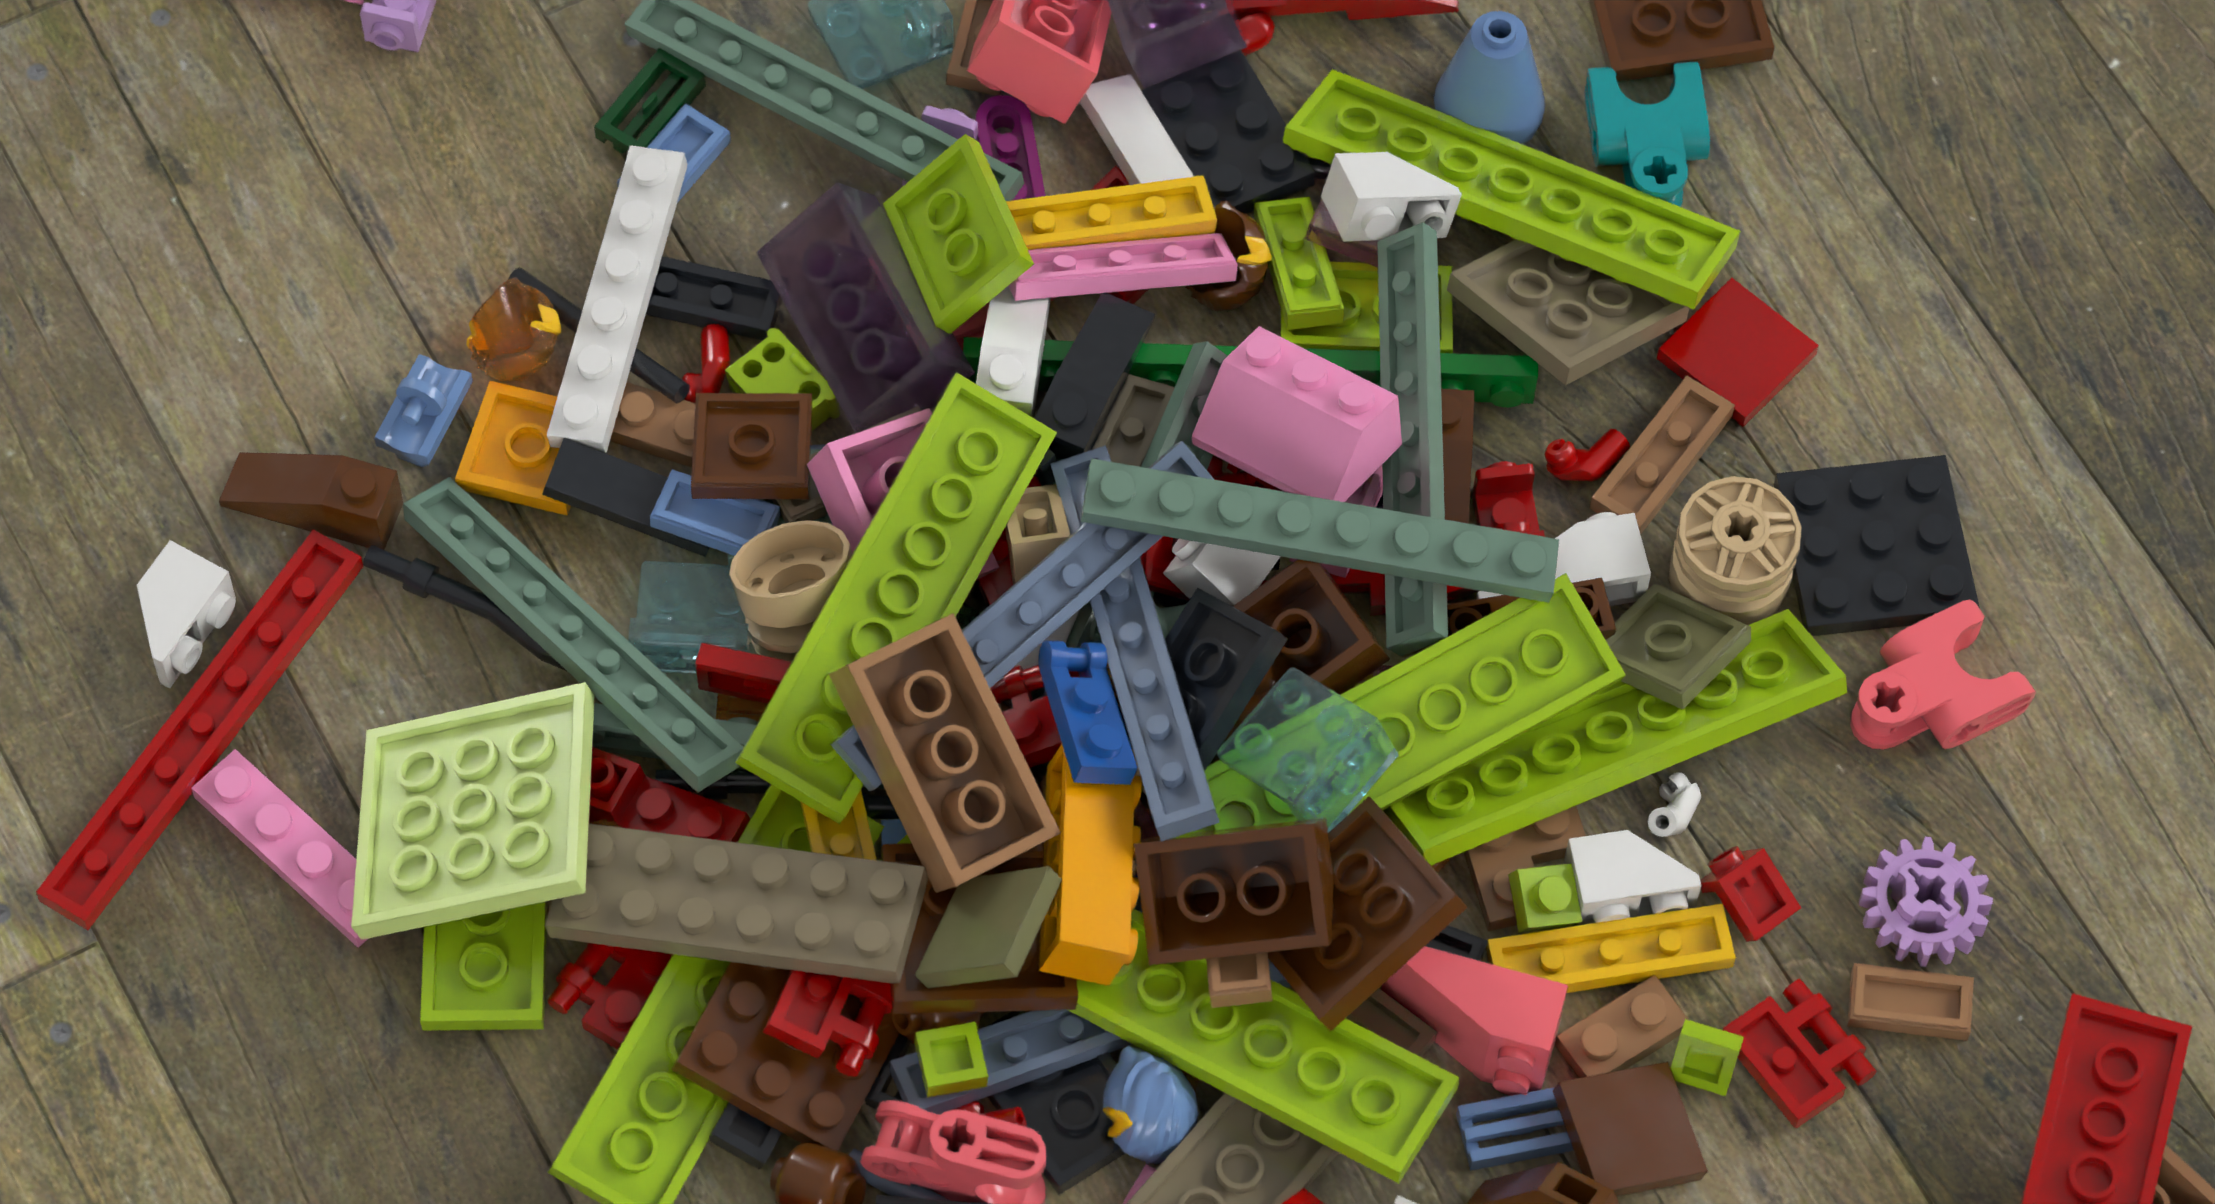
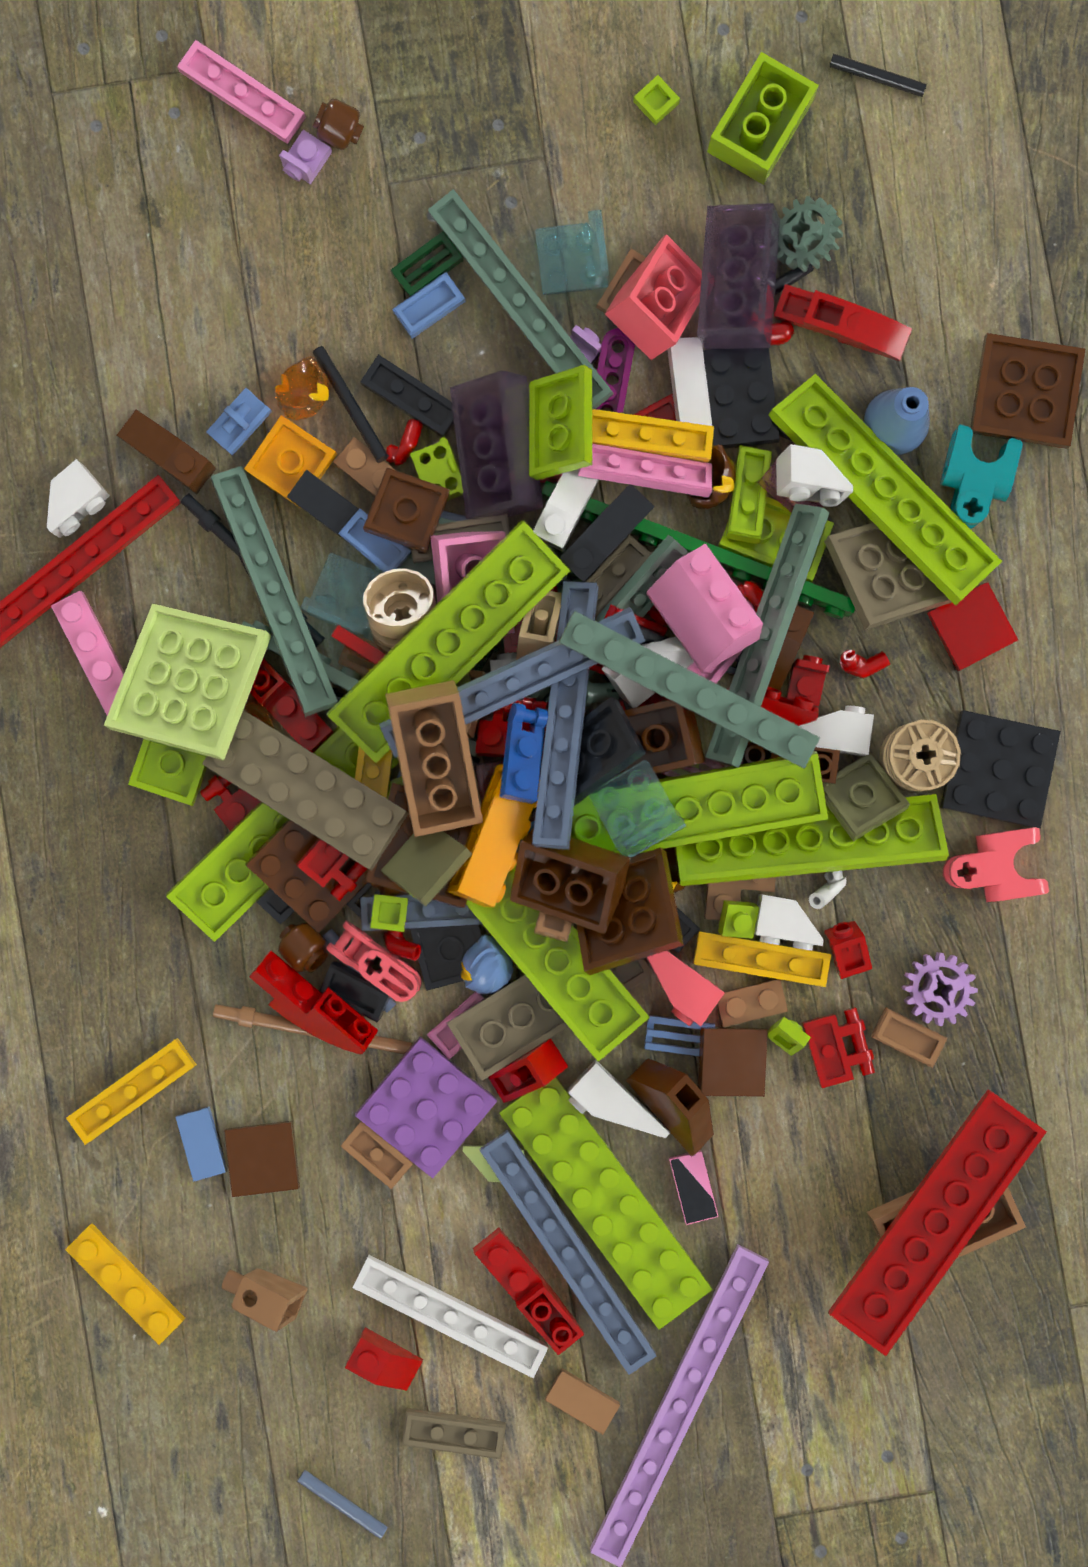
camera: 25 degrees right, 25 degrees up
(618, 298) = (365, 389): white plate -> none
(1664, 453) = (905, 678): medium nougat plate -> none

